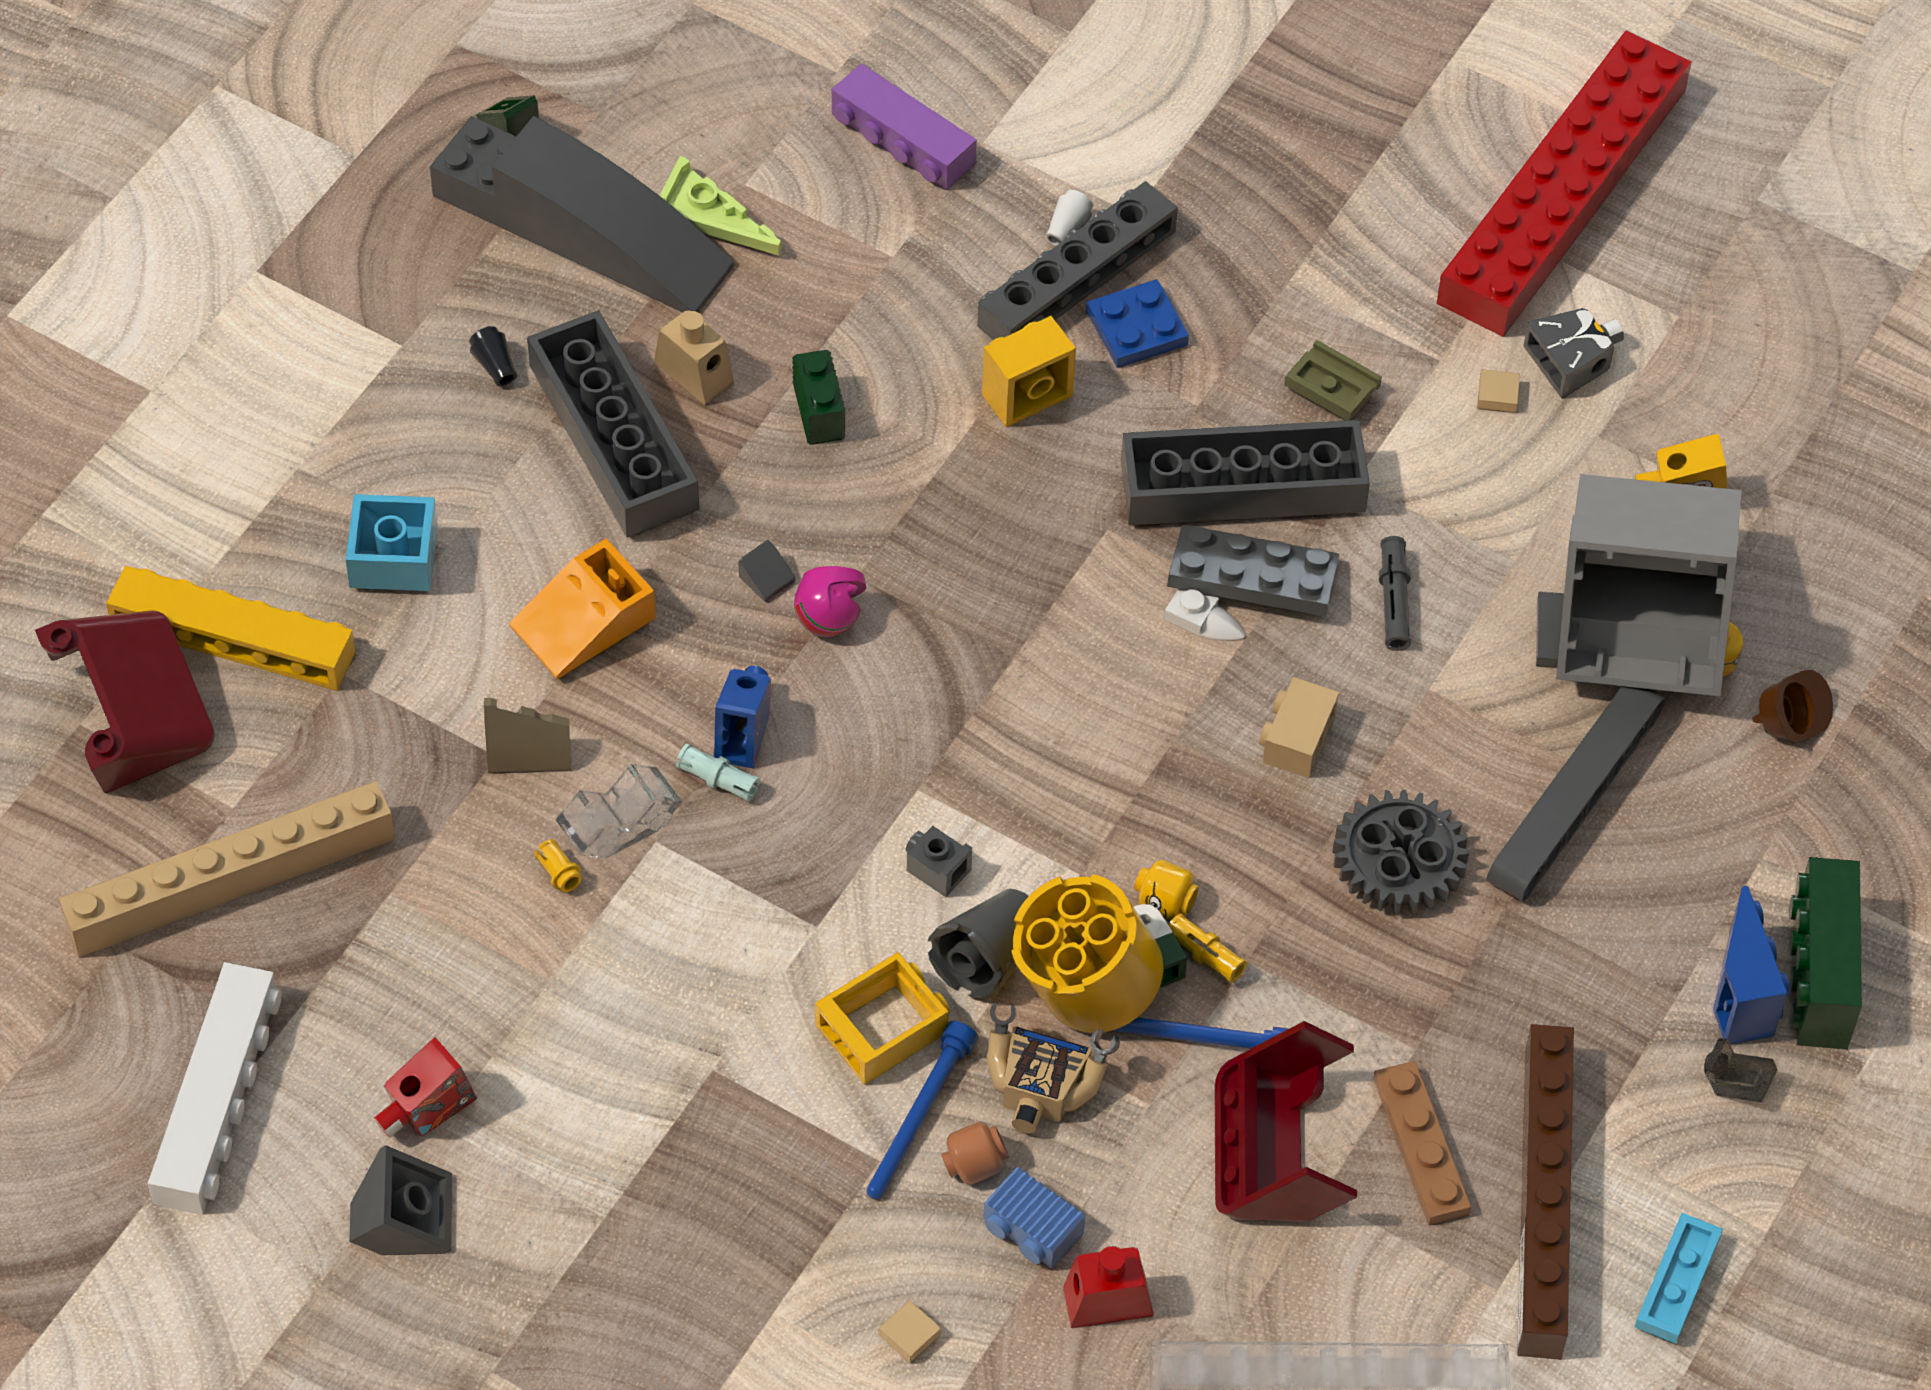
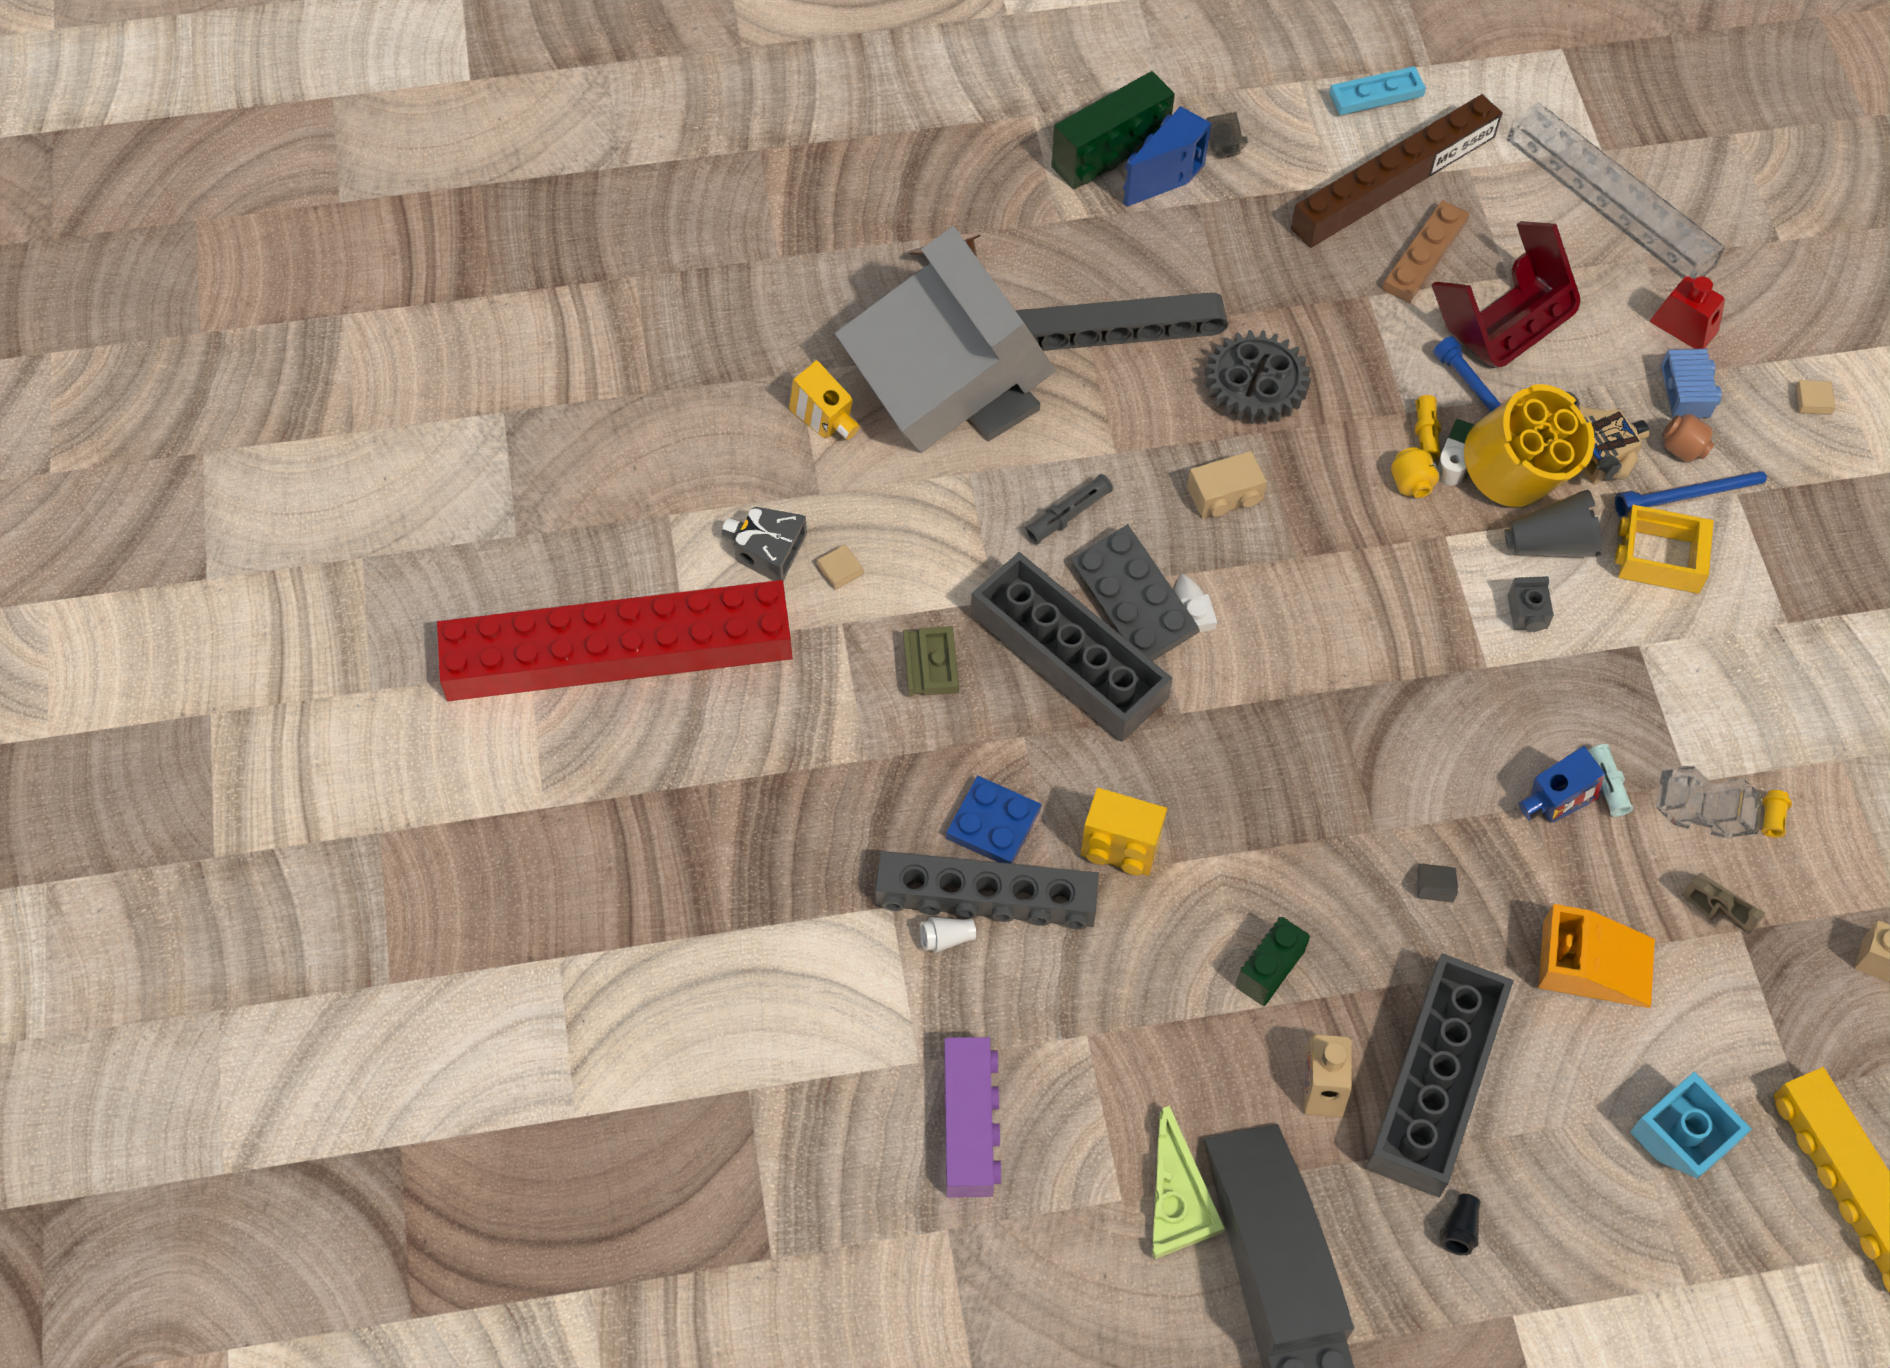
camera: 130 degrees left, 5 degrees up
(825, 599) = (1435, 807): dark pink helmet -> none

